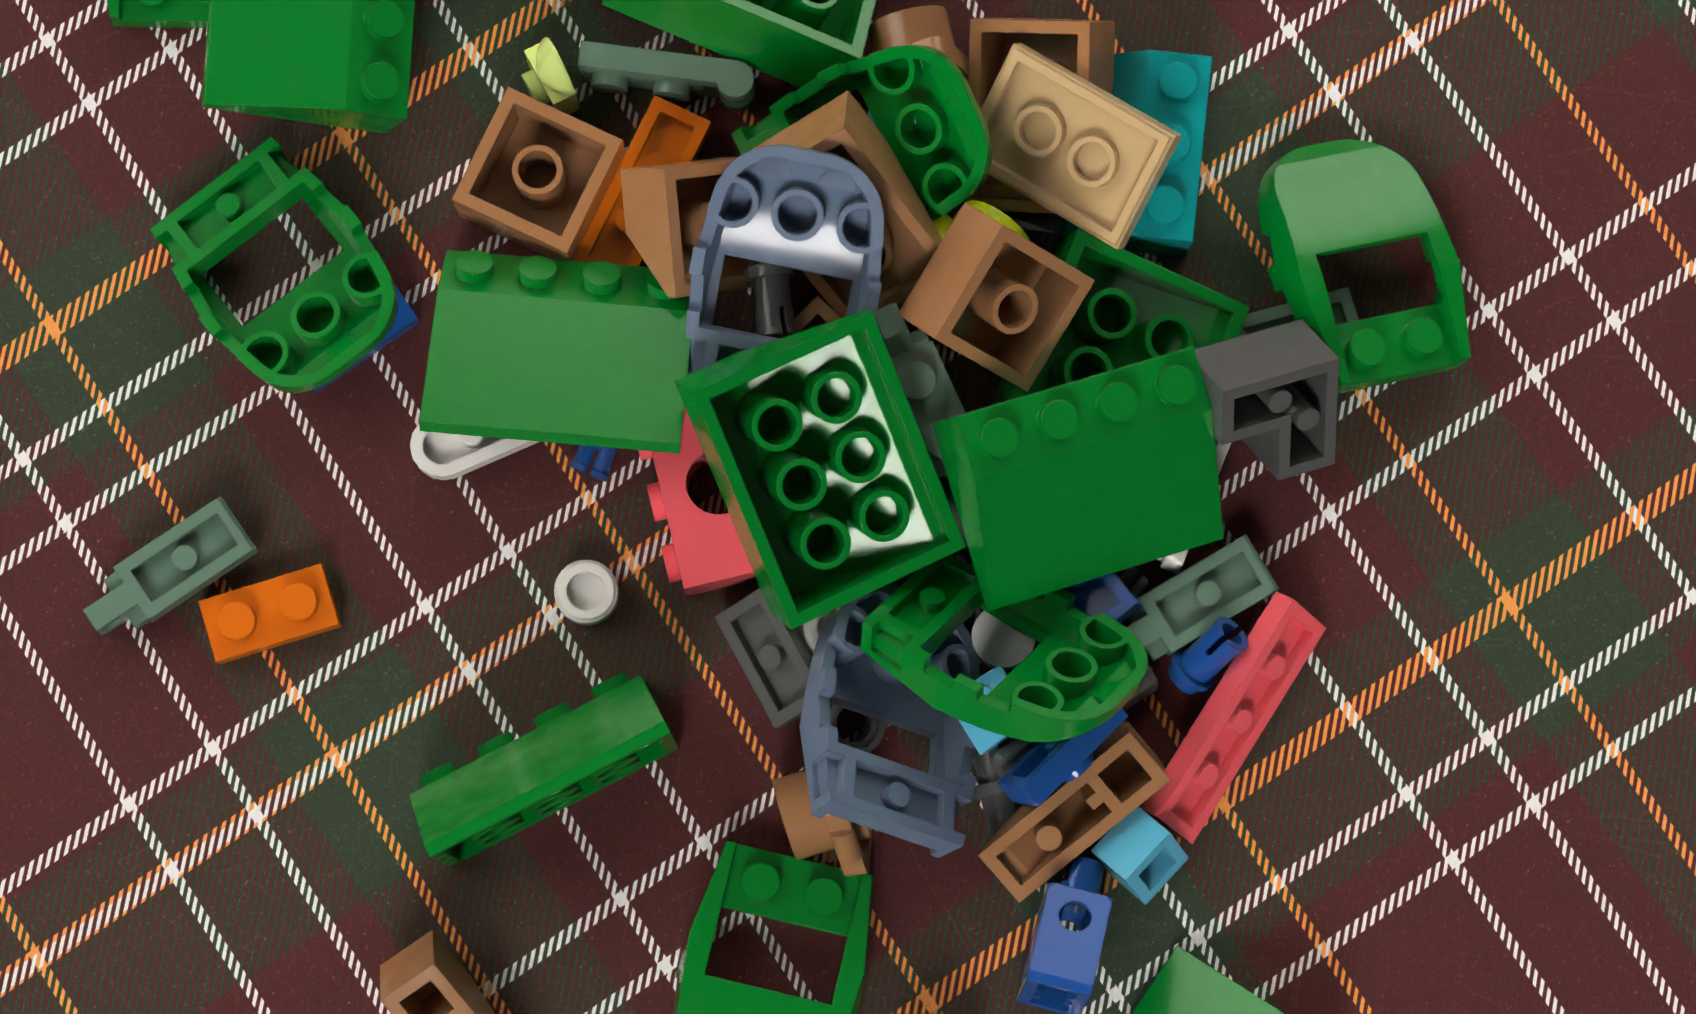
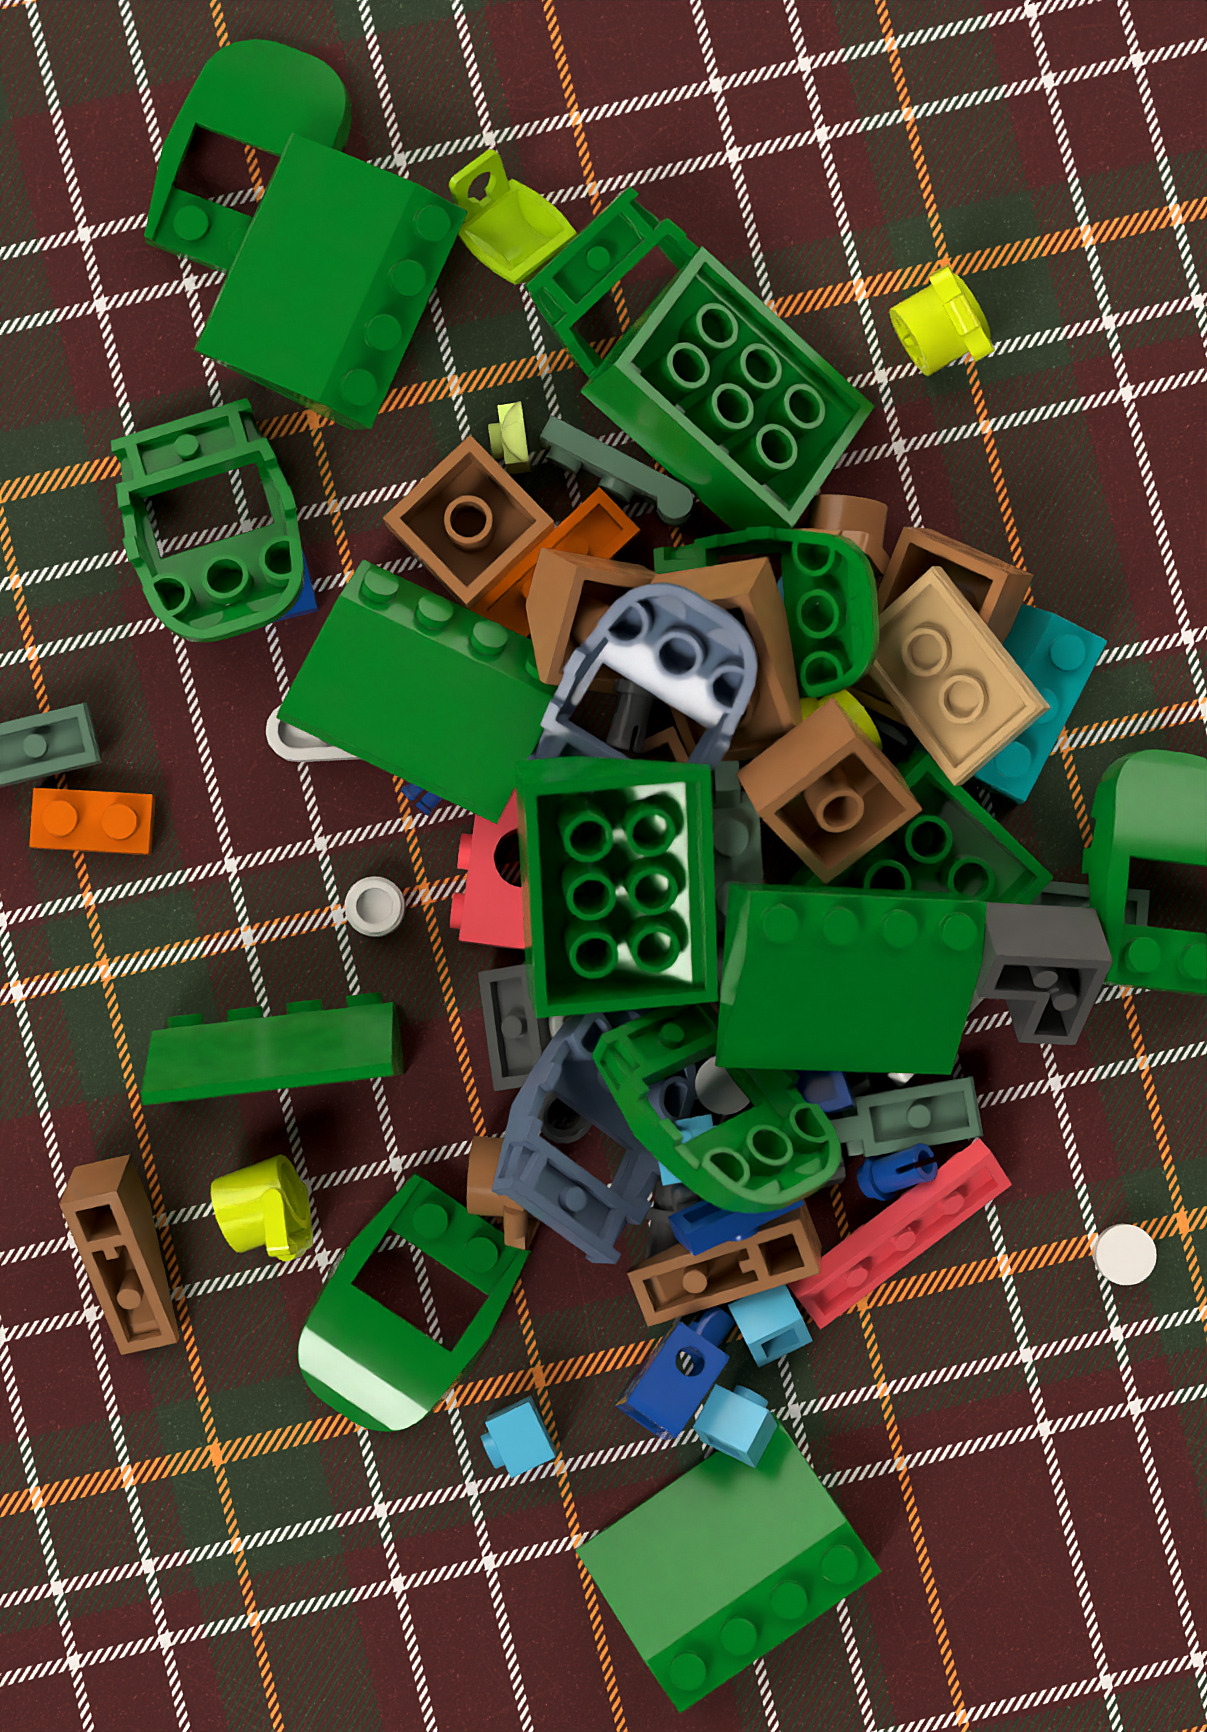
camera: 25 degrees right, 5 degrees up
(587, 930) = (264, 1207): none -> neon yellow piece
(1145, 968) = (736, 1423): none -> medium azure plate
(1464, 655) = (1124, 1254): none -> white tile

